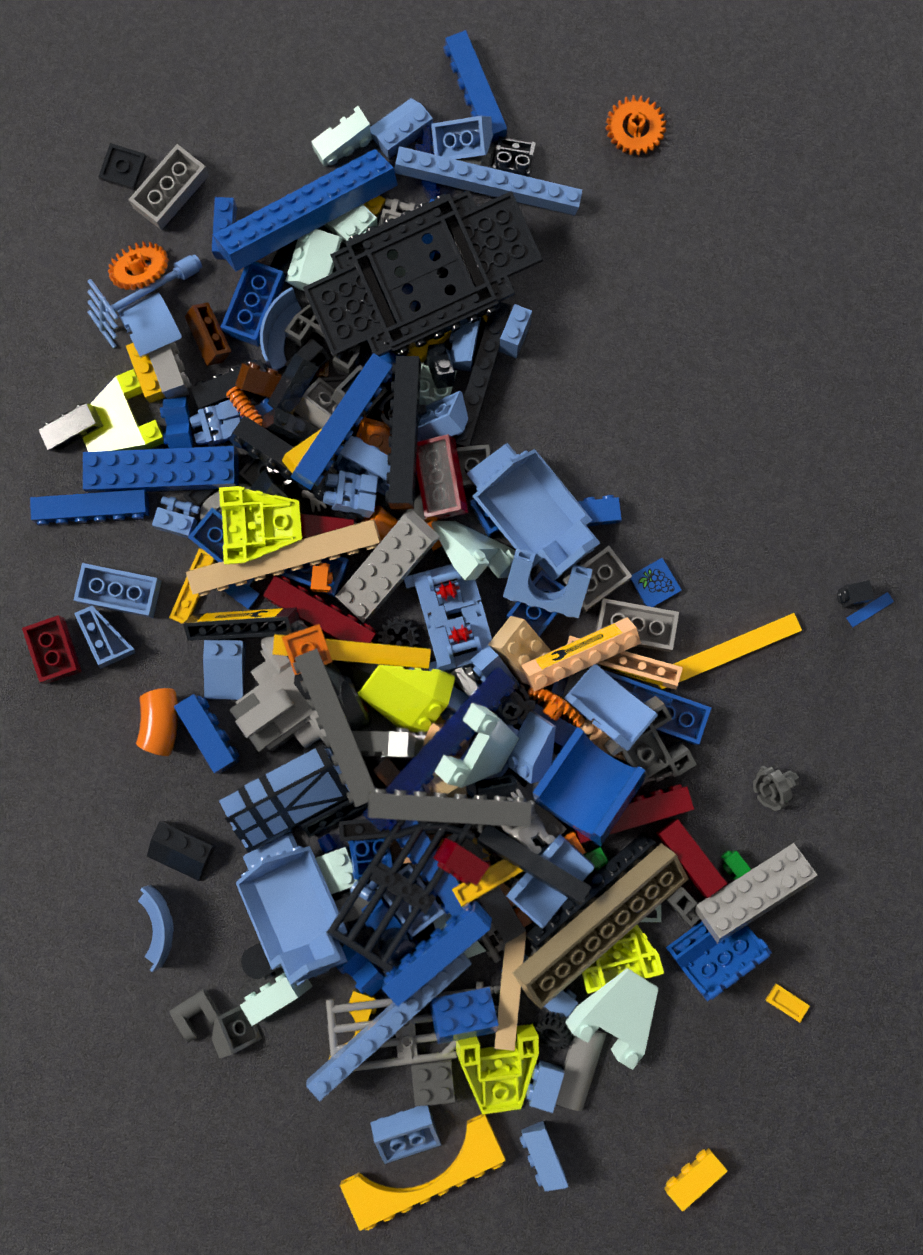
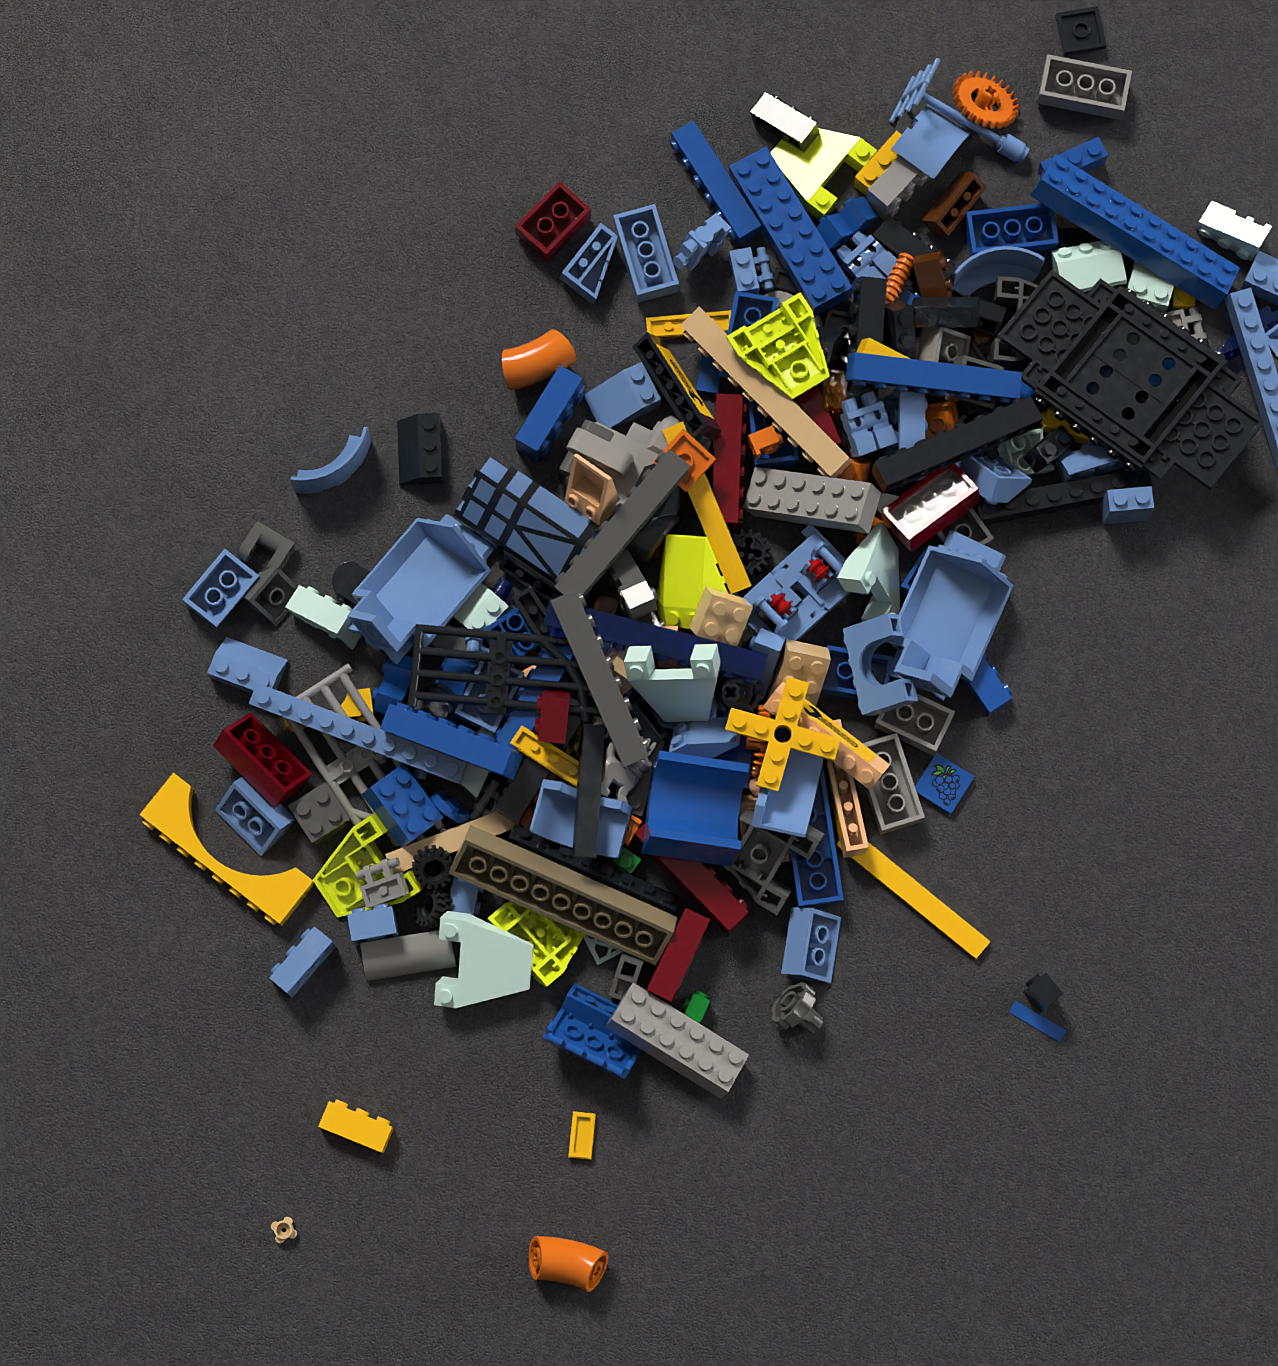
camera: 60 degrees right, 5 degrees down
(132, 539) = (704, 240): none -> medium blue hips
(209, 1071) = (220, 588): none -> medium blue slope
(283, 1080) = (245, 666): none -> medium blue slope
(294, 738) = (590, 491): none -> light nougat slope
(311, 504) = (834, 392): none -> clear orange panel
(366, 1108) = (262, 759): none -> dark red brick
(447, 687) = (721, 616): none -> tan brick
(482, 975) = (450, 807): none -> blue tile
(515, 1016) = (427, 855): none -> black tyre
(523, 1063) = (384, 889): none -> light grey plate
(578, 676) = (787, 717): none -> yellow piece
(729, 750) = (811, 944): none -> medium blue slope
(883, 1068) = (566, 1262): none -> orange brick

